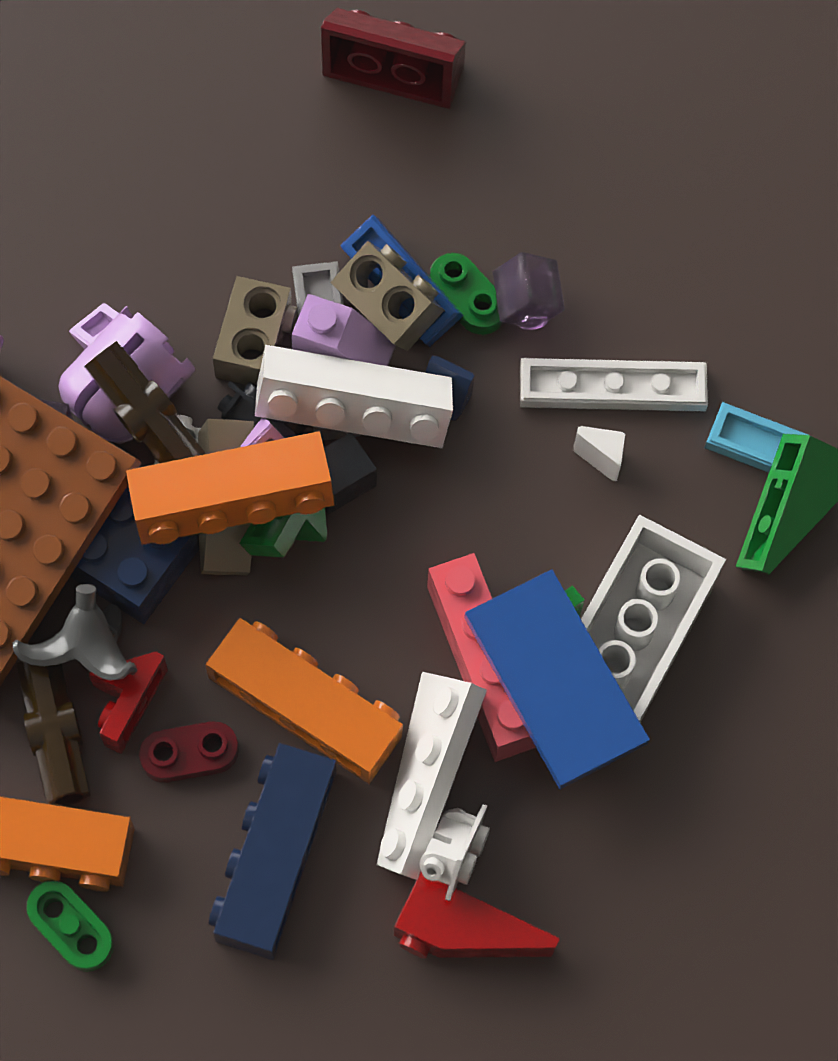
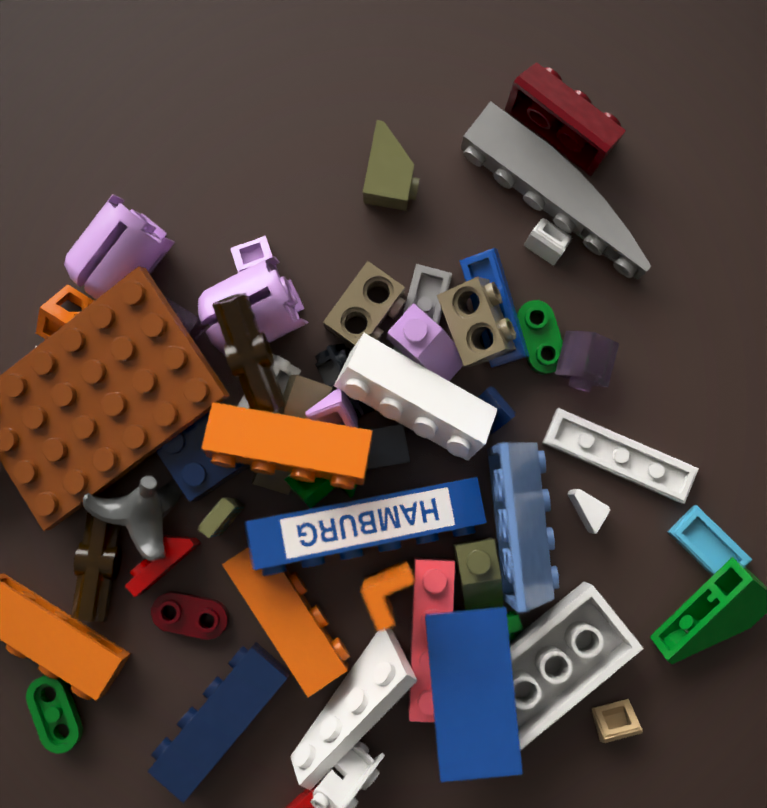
camera: 25 degrees right, 15 degrees up
(184, 610) = (221, 517): none -> olive tile
(221, 181) = (389, 172): none -> olive slope
(351, 555) = (363, 524): none -> brick
(406, 596) = (379, 585): none -> orange fence
(411, 129) = (551, 184): none -> light grey slope
(431, 191) = (548, 241): none -> white slope
(503, 555) = (479, 574): none -> olive slope
(528, 485) = (521, 524): none -> medium blue slope
(740, 672) = (616, 721): none -> tan slope

